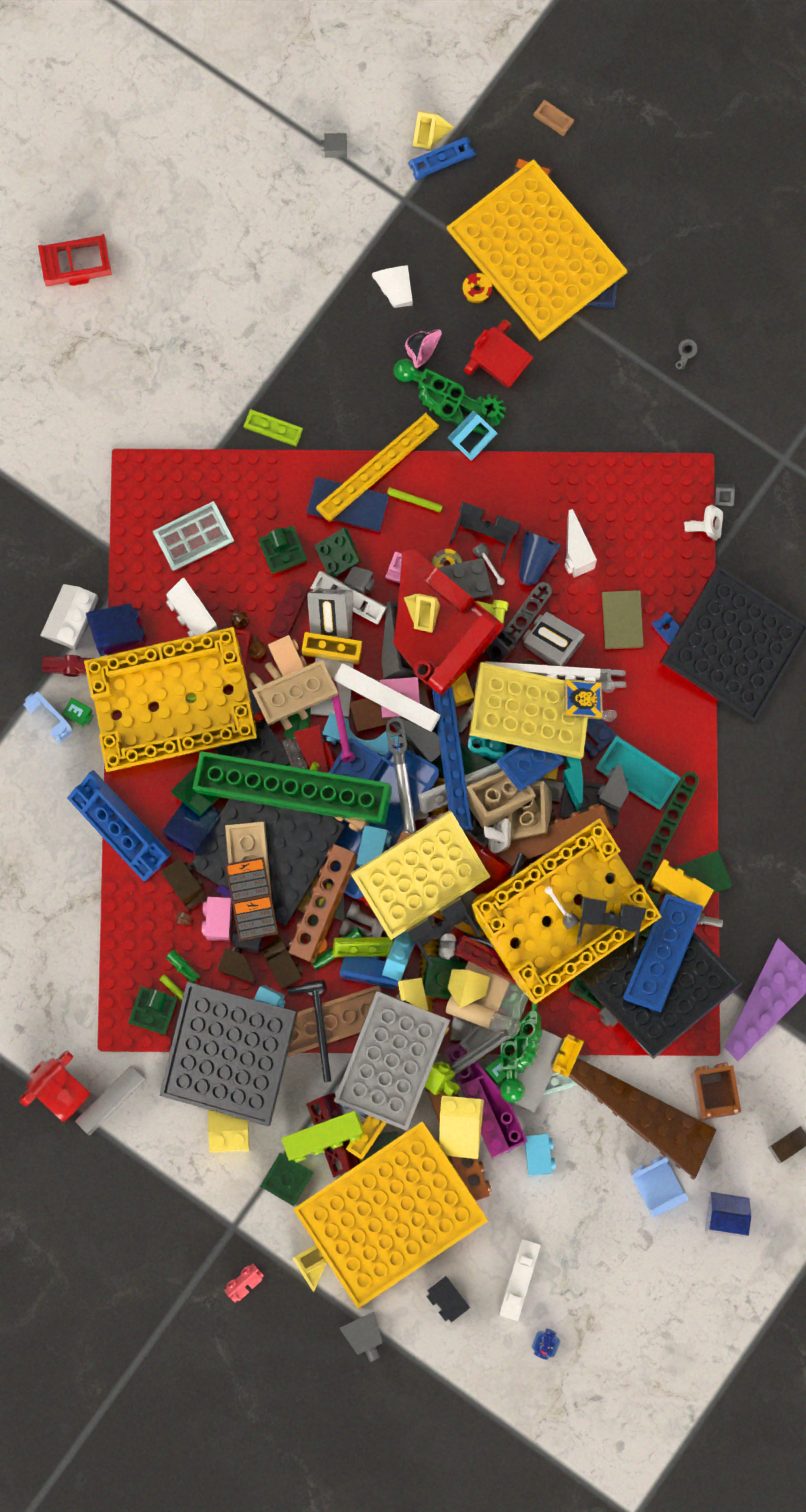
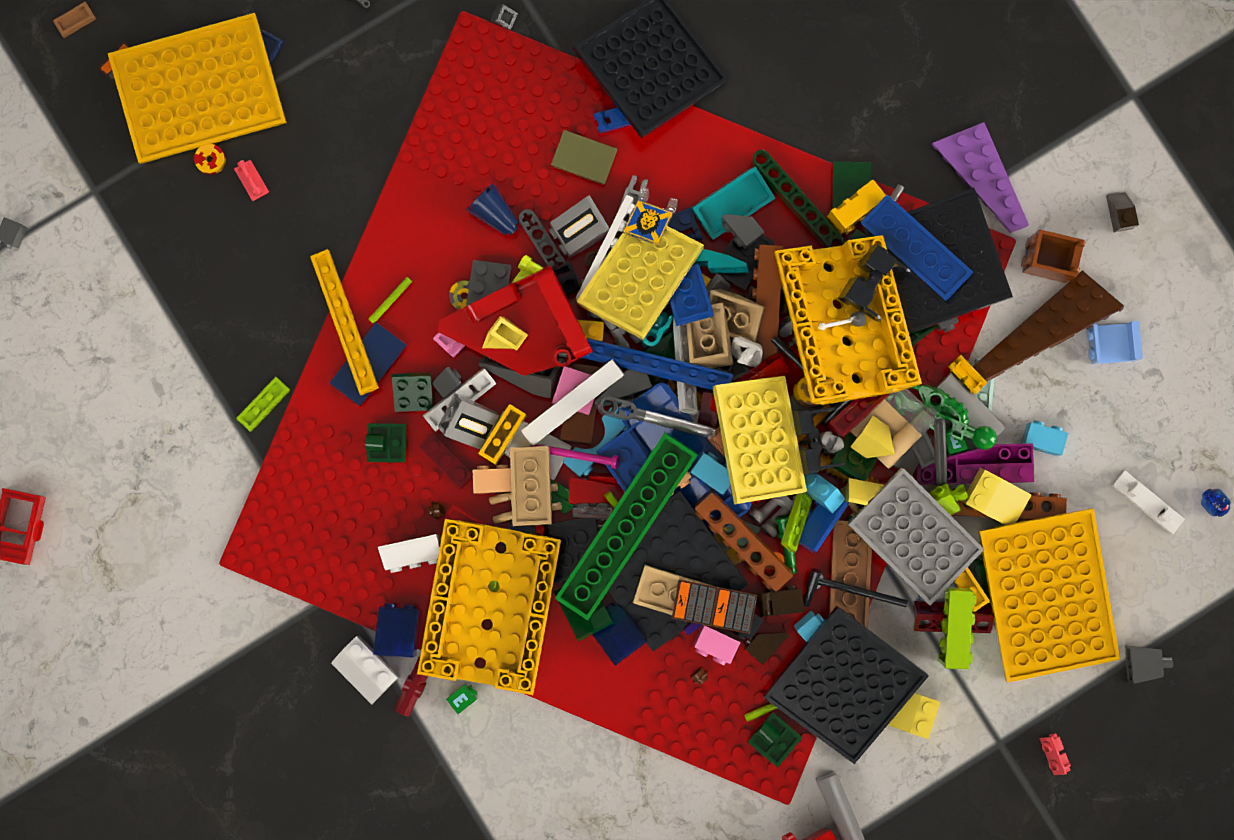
camera: 75 degrees left, 5 degrees up
(62, 729) = (472, 717): light blue panel -> none
(119, 826) = (587, 702): blue slope -> none
(183, 966) = (744, 694): green axle -> none
(184, 884) = (669, 663): dark brown hinge -> none
(193, 536) = (337, 521): clear piece -> none
(257, 648) = (472, 505): reddish brown piece -> none
(286, 1179) = (979, 679): dark green plate -> none
(311, 1265) = (1062, 687): light yellow slope -> none
(395, 285) = (174, 233): white slope -> none
(422, 345) = (244, 233): bright pink hat -> none
(430, 129) = (35, 138): light yellow slope -> none
(439, 399) = (302, 240): green arm -> none
(441, 158) = (68, 139): blue plate -> none
(448, 1300) = (1146, 574): black brick -> none
(465, 428) = (342, 223): medium azure tile -> none
(471, 519) = (455, 230): black piece -> none
(473, 331) = (251, 179): none -> coral hinge
(482, 551) = (466, 258): hinge -> none
(498, 355) = (286, 164): red piece -> none
(578, 550) = (501, 168): white slope -> none
(707, 525) = (529, 40): white piece -> none
(728, 1214) = (1166, 291): clear blue slope -> none

